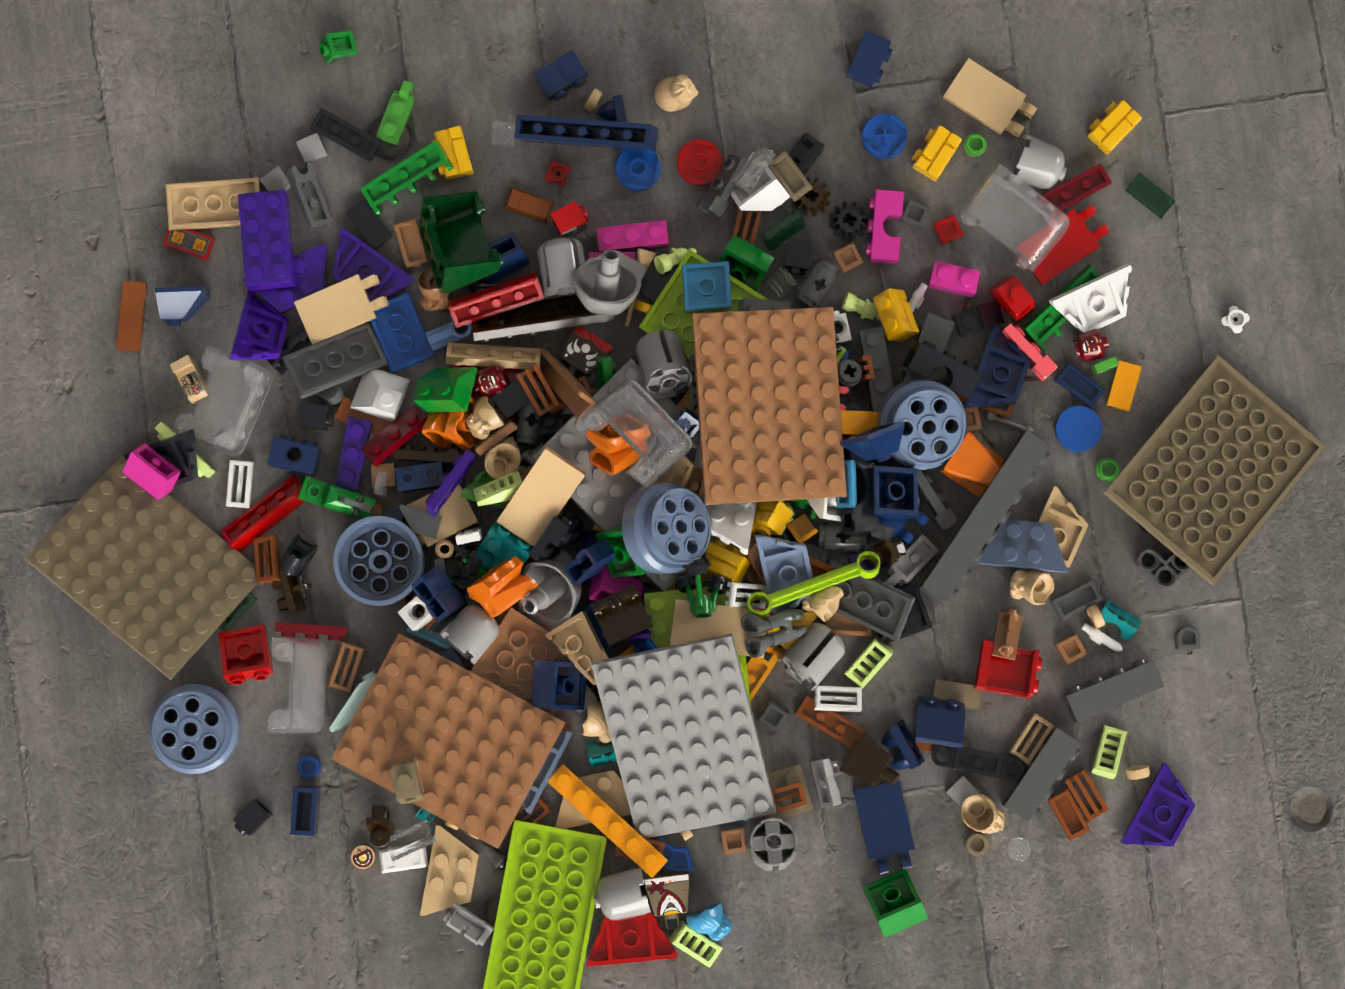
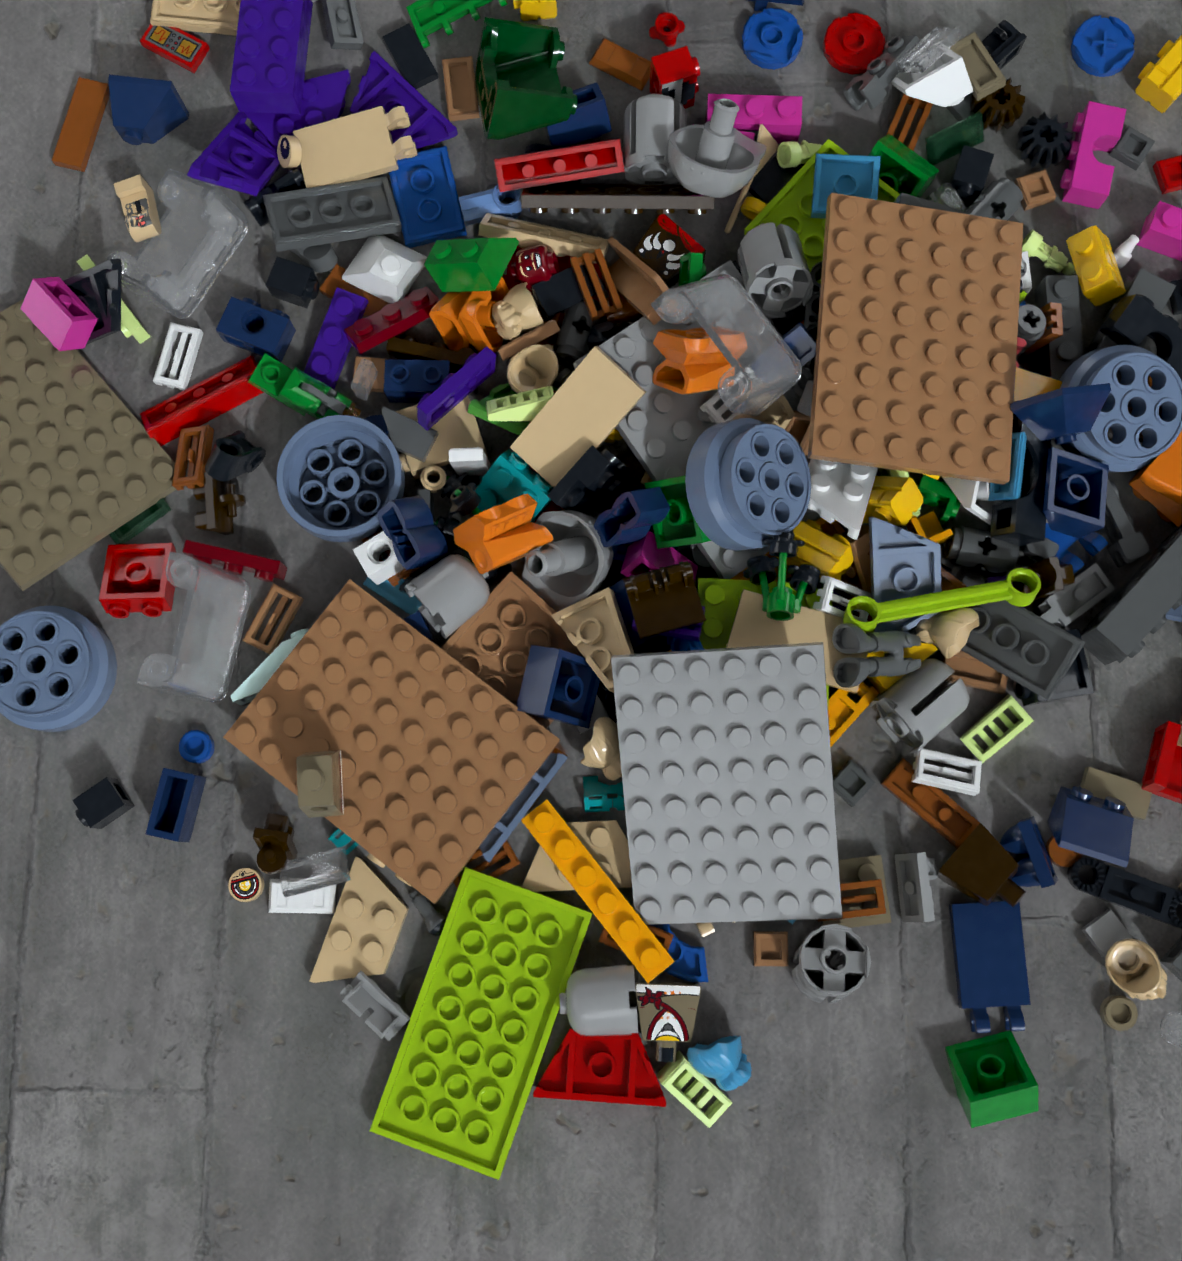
camera: 15 degrees right, 5 degrees down
(294, 318) = (289, 151): none -> tan tile
(431, 298) = (478, 151): medium nougat hair -> none

